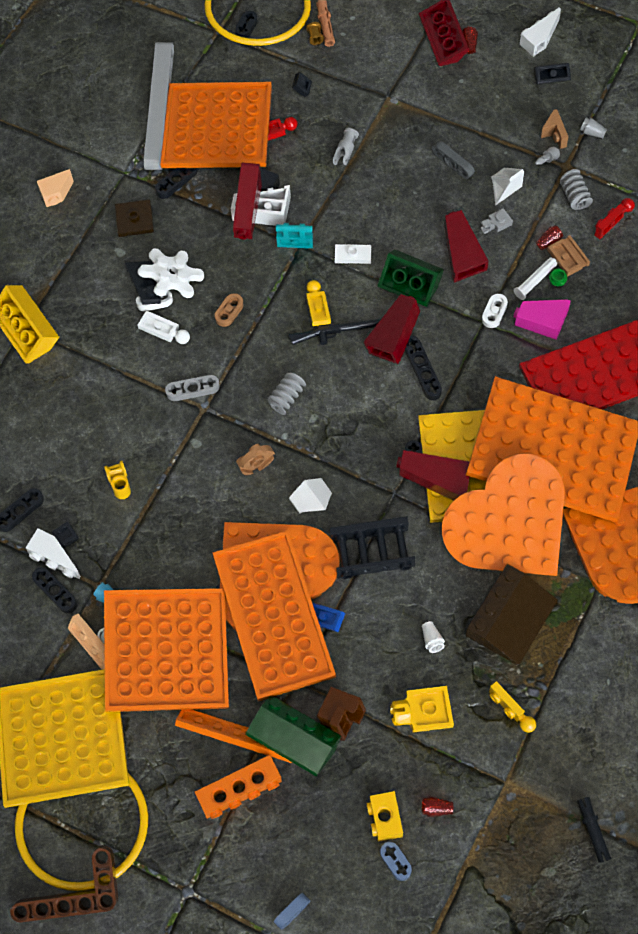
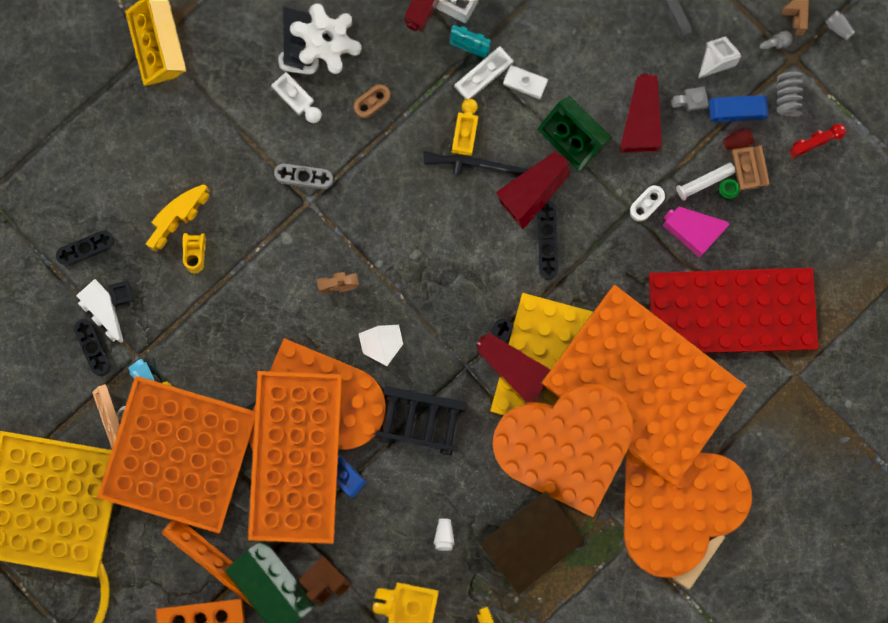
camera: 15 degrees right, 15 degrees up
(93, 449) = (181, 208): none -> yellow slope
(285, 392) = (395, 219): light grey piece -> none
(315, 258) = (483, 73): none -> white plate
(539, 215) = (738, 108): none -> blue beam

